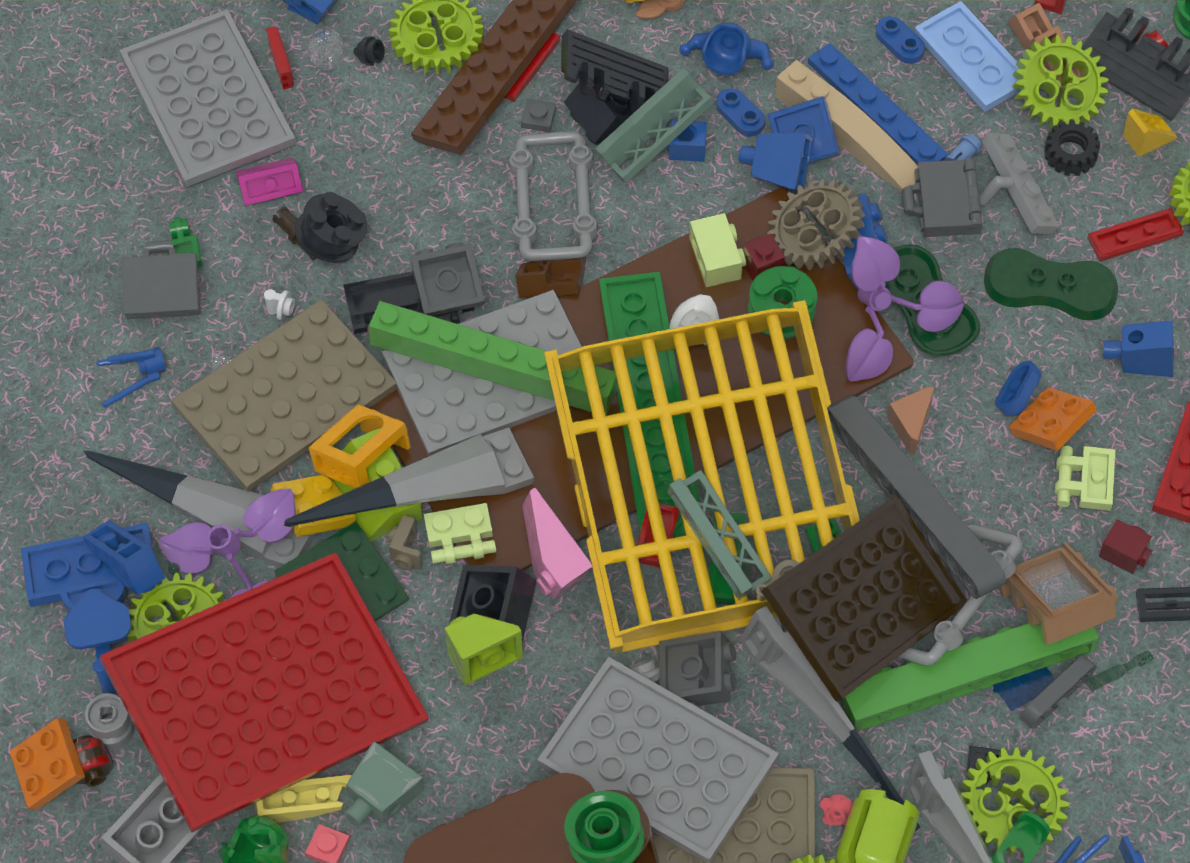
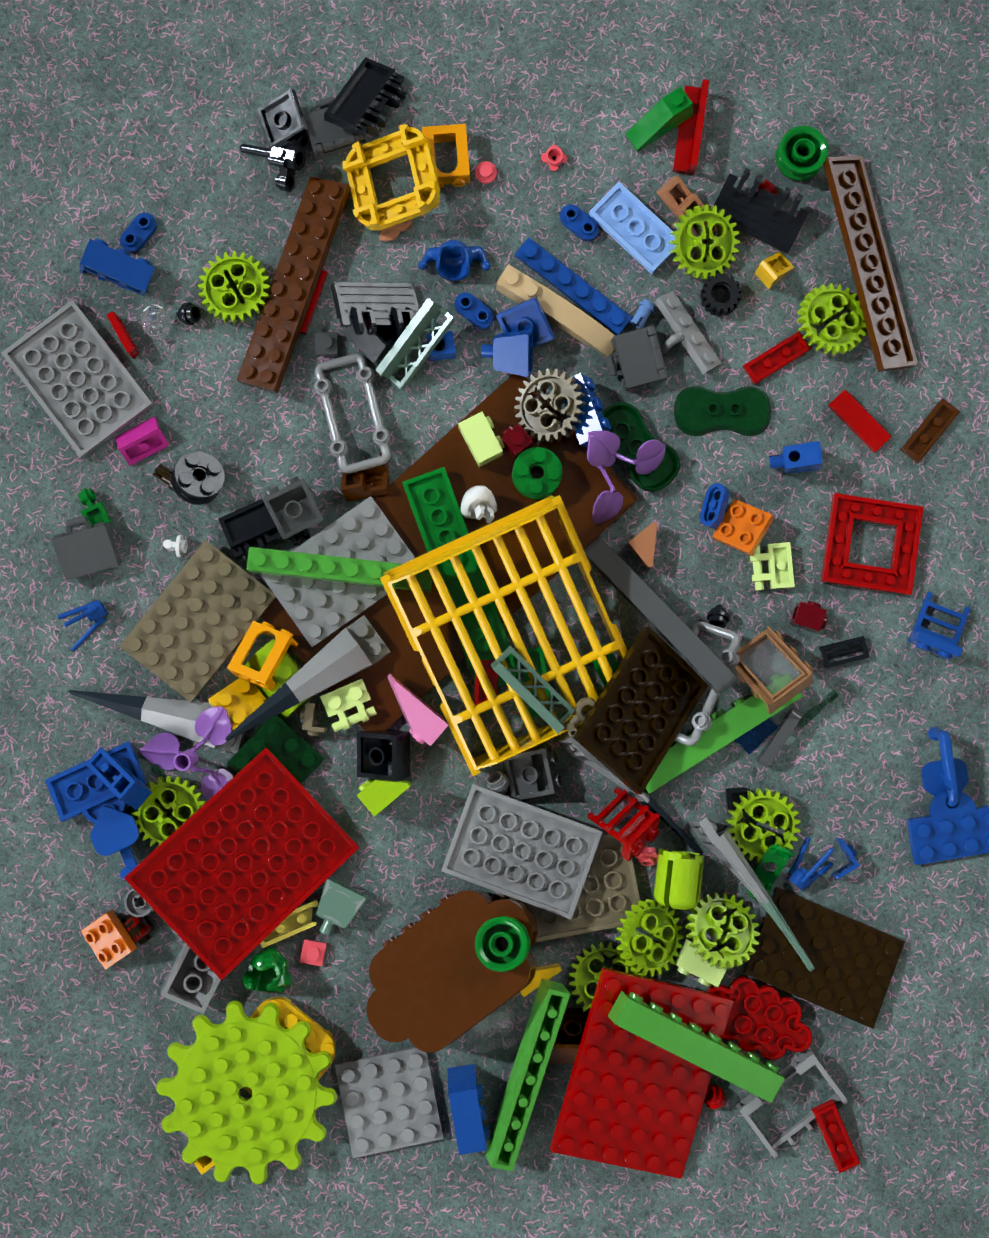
camera: 15 degrees left, 25 degrees up
(828, 758) = (637, 831): none -> red plate
(999, 521) = (718, 616): none -> black plate

